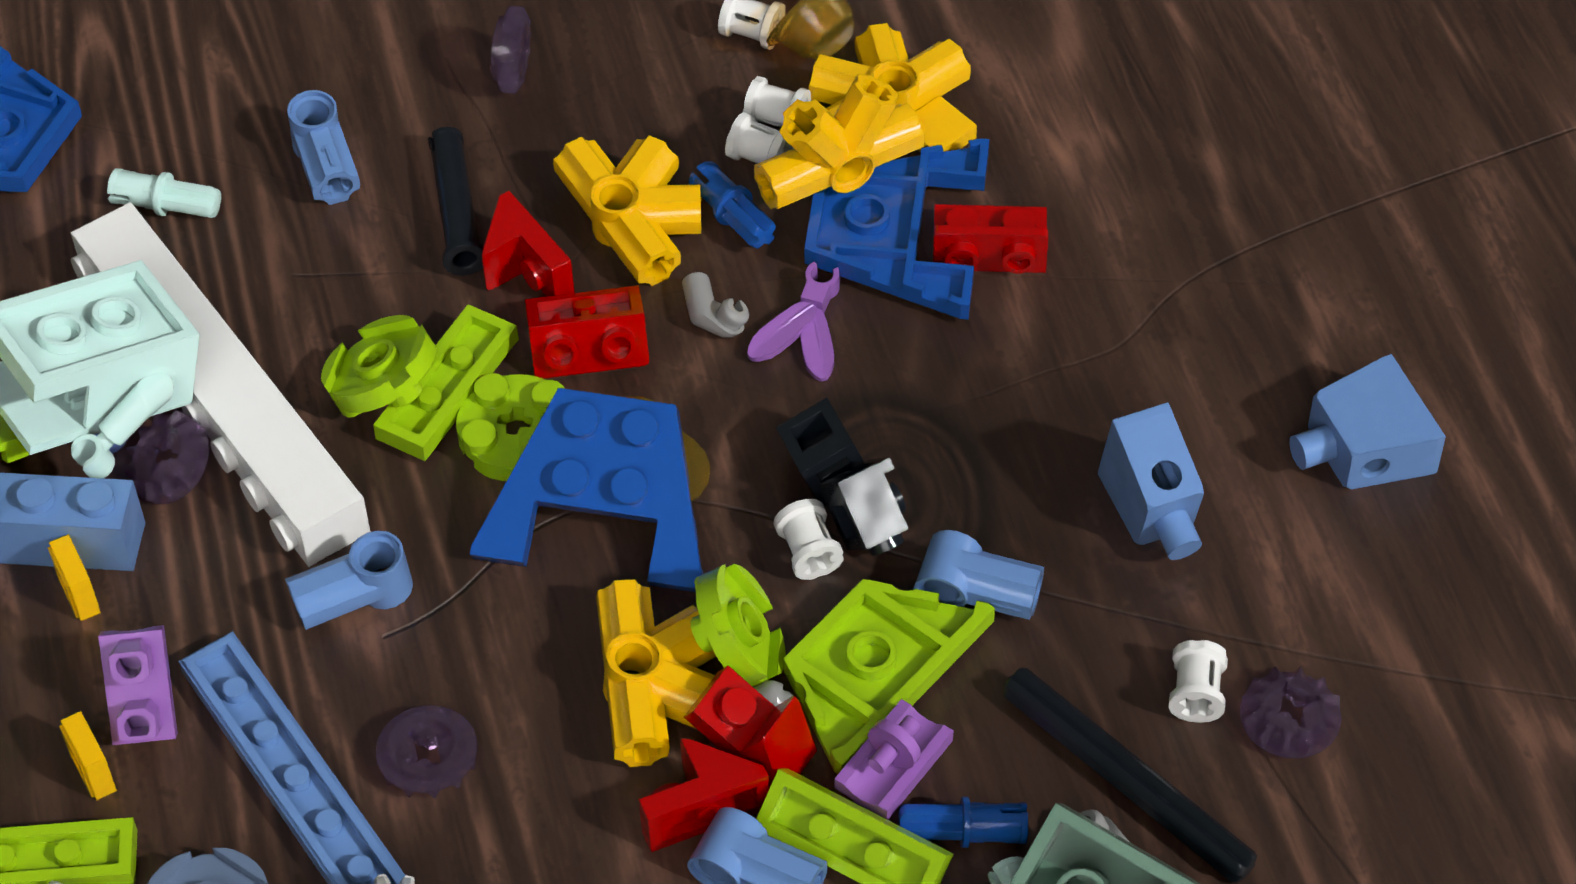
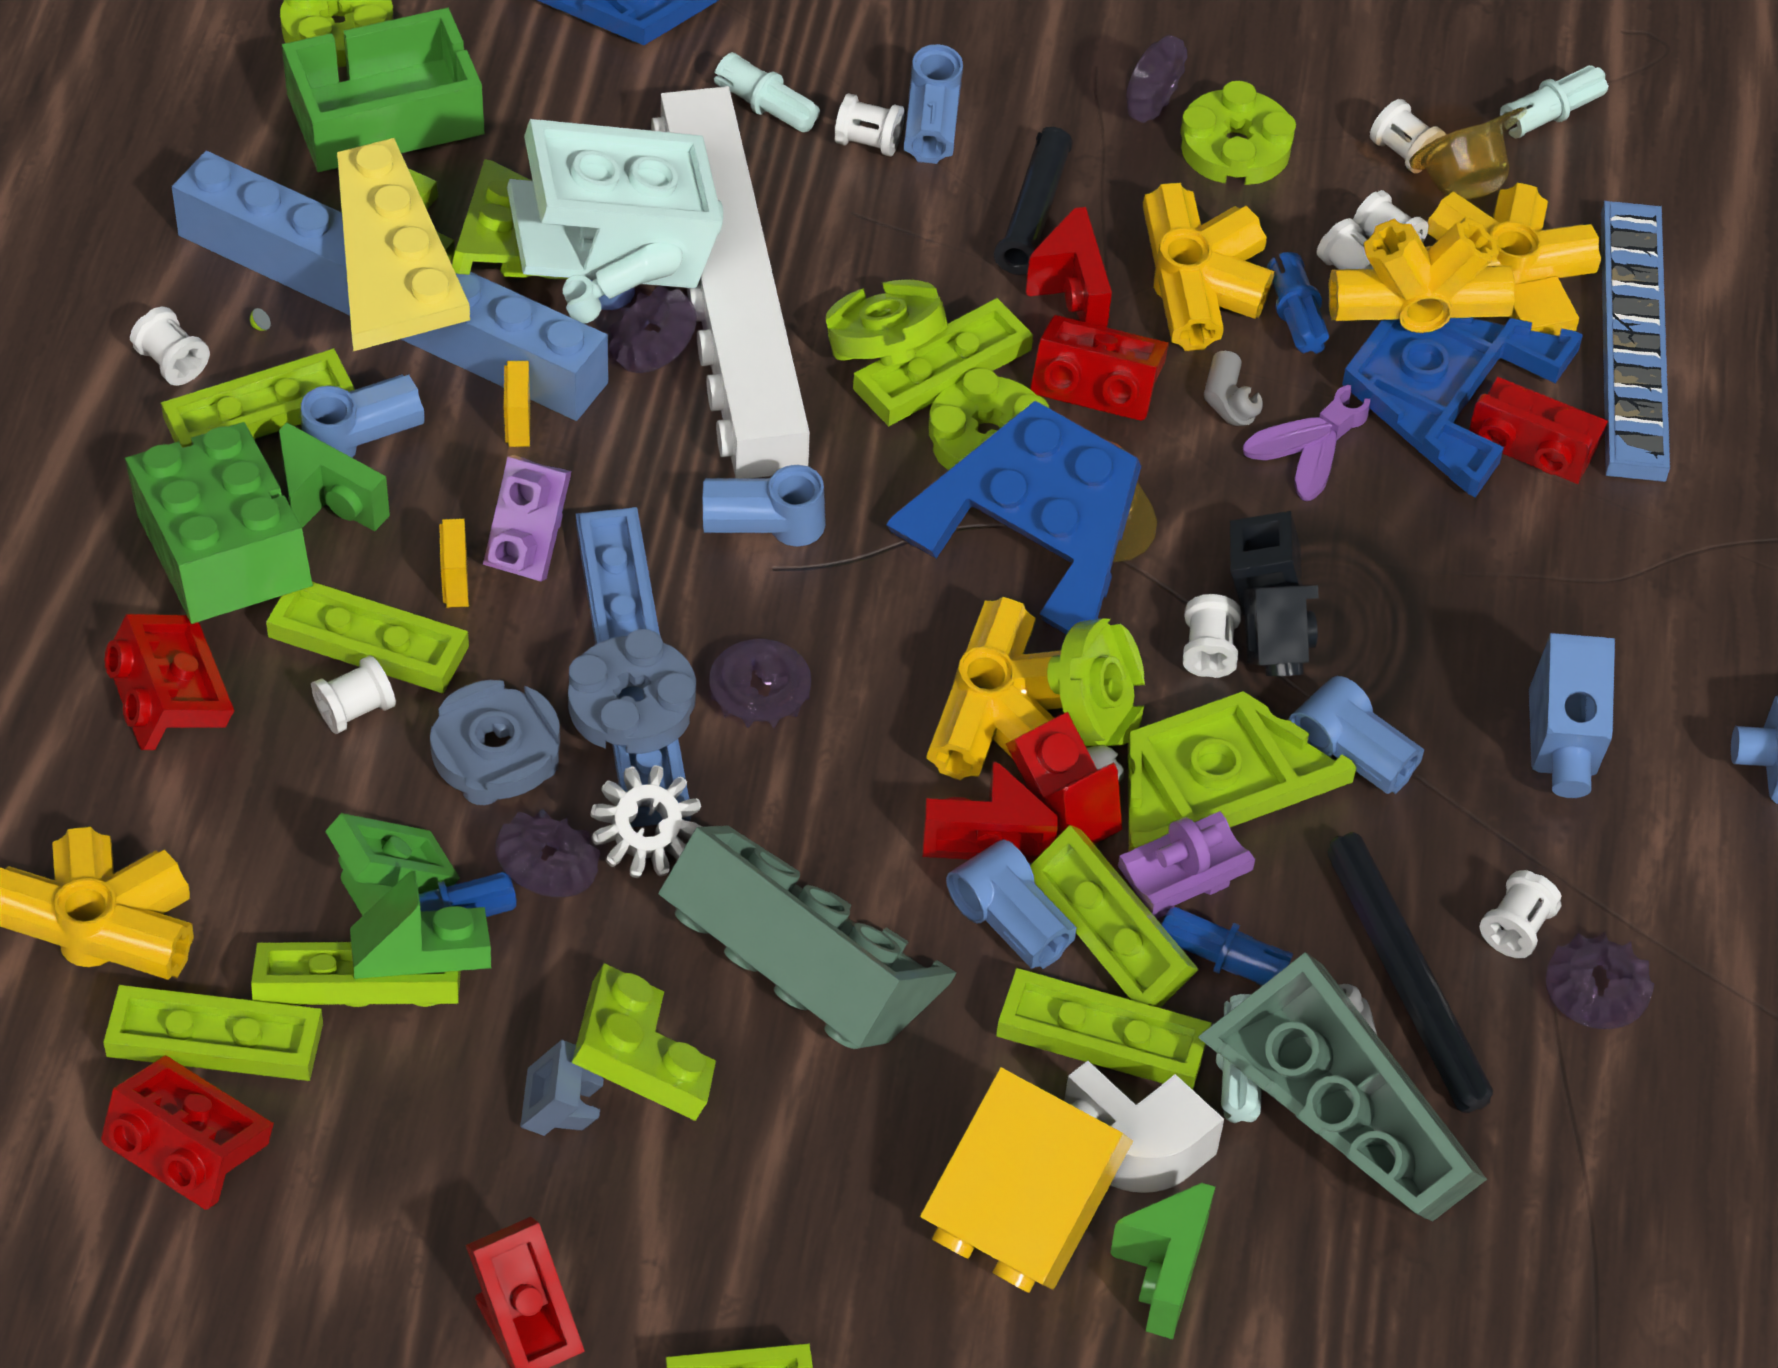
camera: 20 degrees right, 0 degrees up
(288, 176) = (849, 127): none -> white bush
(308, 780) = (626, 662): none -> sand blue plate
(598, 50) = (1240, 111): none -> lime plate
(1032, 129) = (1634, 342): none -> tile

